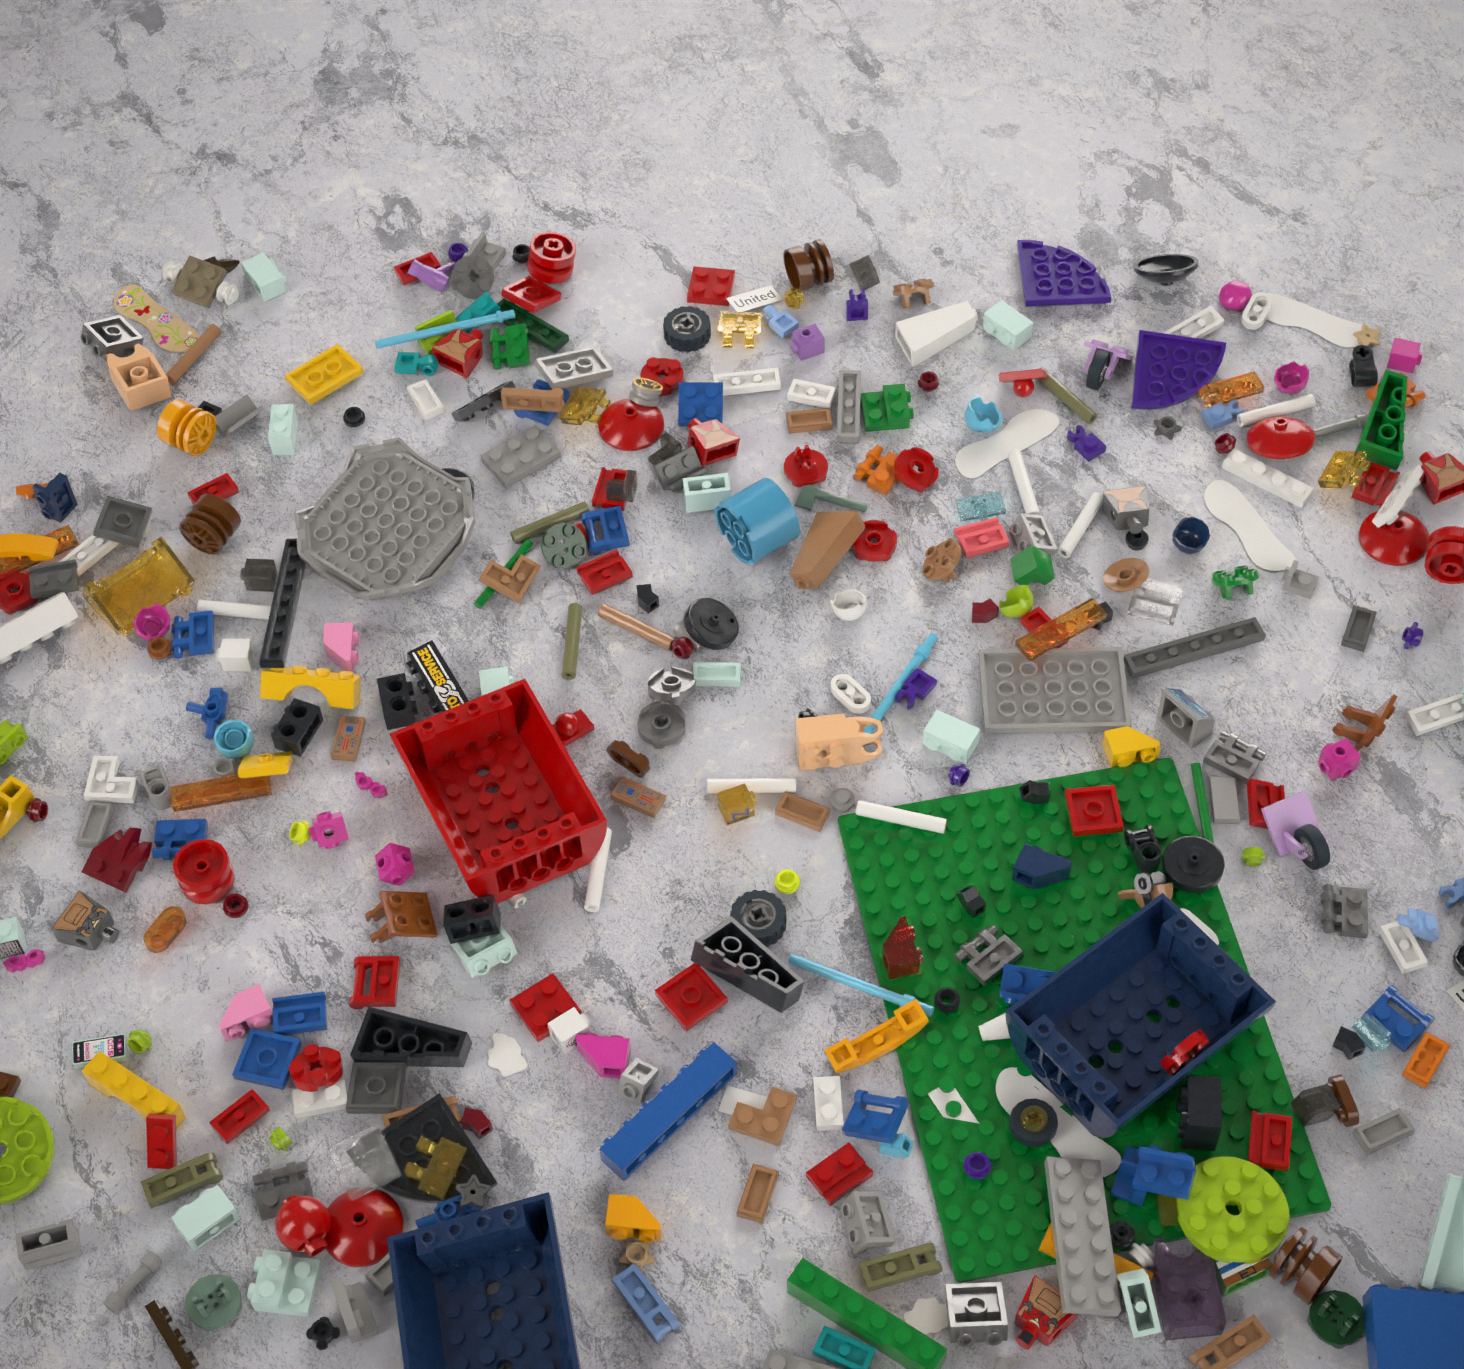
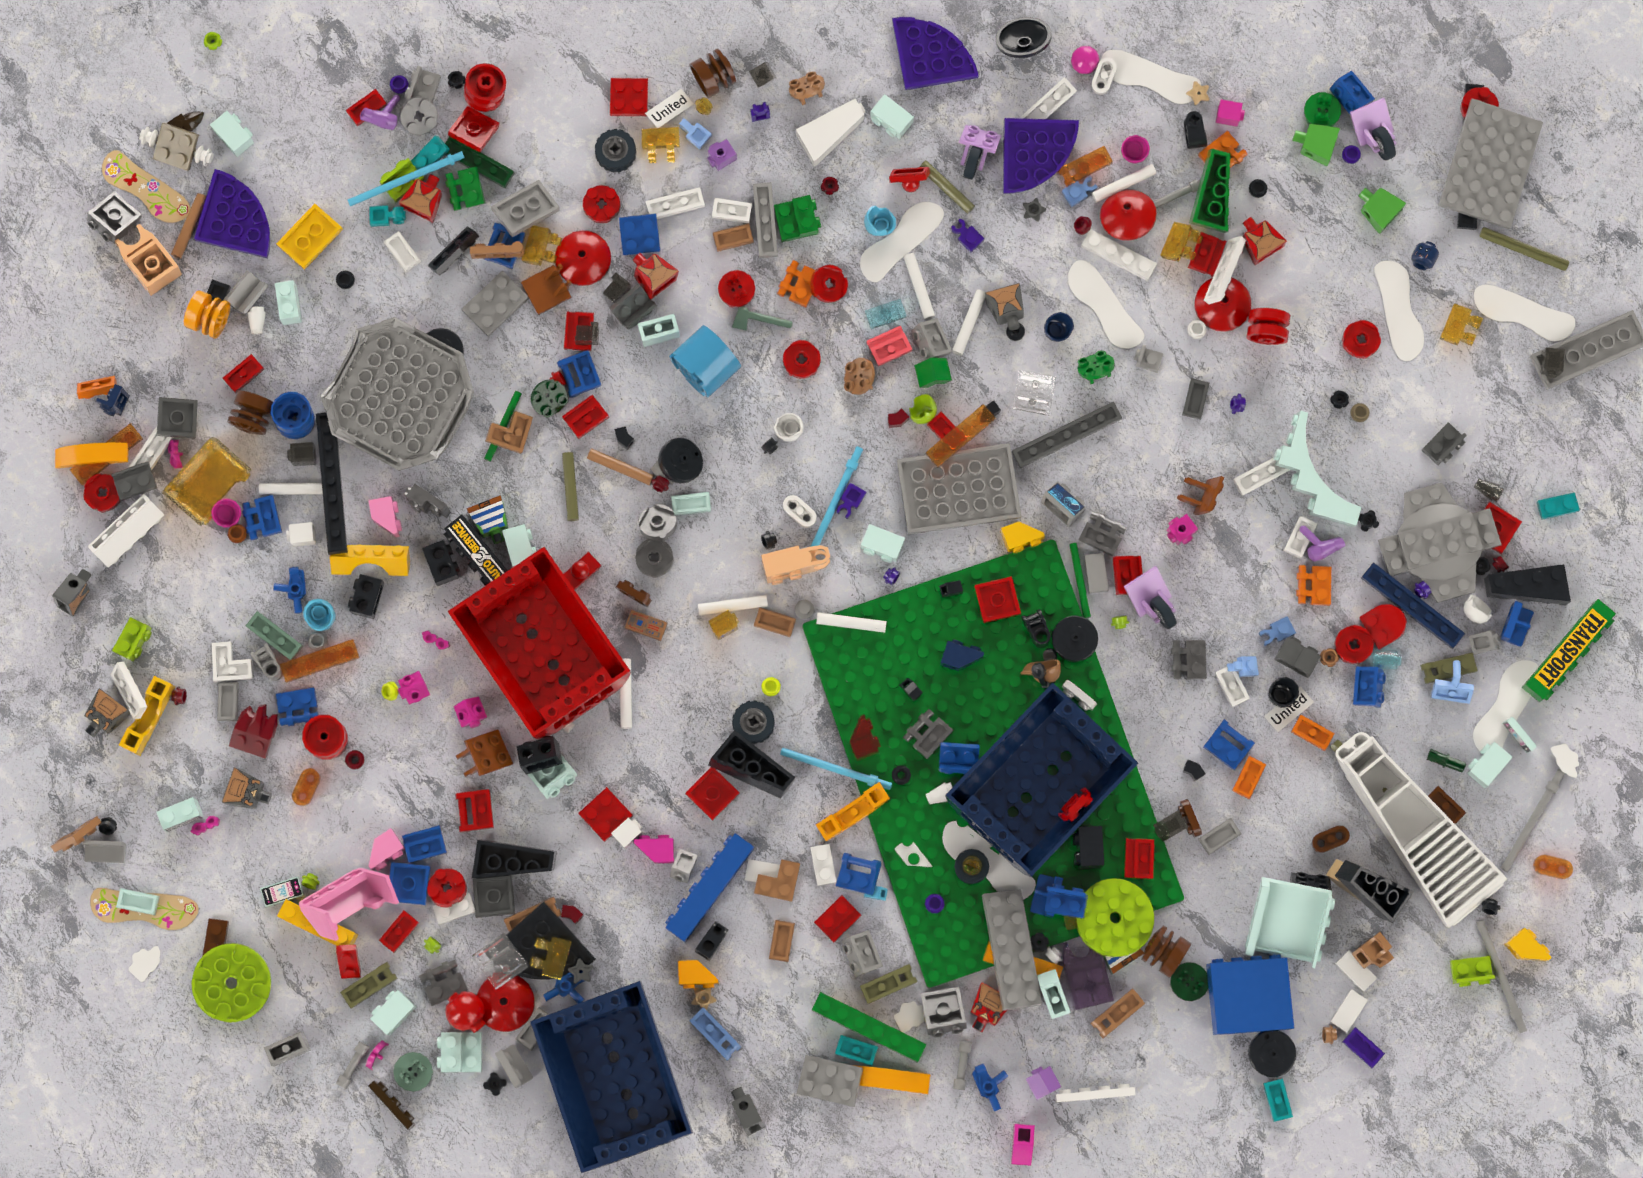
camera: 10 degrees left, 25 degrees up
(109, 565) = (175, 455): none -> dark pink piece
(170, 1267) = (375, 1053): none -> dark pink piece
(172, 757) = (274, 635): none -> sand green plate
(180, 1061) = (345, 897): none -> bright pink windscreen
(243, 350) = (233, 217): none -> dark purple plate
(243, 441) = (256, 319): none -> white cone
(257, 531) = (290, 405): none -> blue wheel
(265, 764) = (350, 636): yellow plate -> none
(266, 200) = (212, 36): none -> lime plate
(348, 738) = (408, 599): medium nougat tile -> none
(392, 630) = (424, 501): none -> flat silver plate
(466, 658) = (490, 518): none -> torso
(506, 1055) = (583, 855): white sticker -> none
(540, 526) = (532, 371): olive piece -> none
(585, 445) = (547, 289): none -> dark orange plate
(645, 392) = (591, 228): light grey wheel -> none
(659, 1179) = (711, 941): none -> black leg
(823, 623) = (769, 446): none -> black plate
(825, 546) = (762, 374): medium nougat slope -> none
(1126, 574) = (1003, 367): medium nougat dish -> none
(1361, 557) = (1196, 329): none -> white plate
(1372, 1033) = (1210, 762): clear light blue brick -> none
(1438, 428) = (1258, 188): none -> black plate

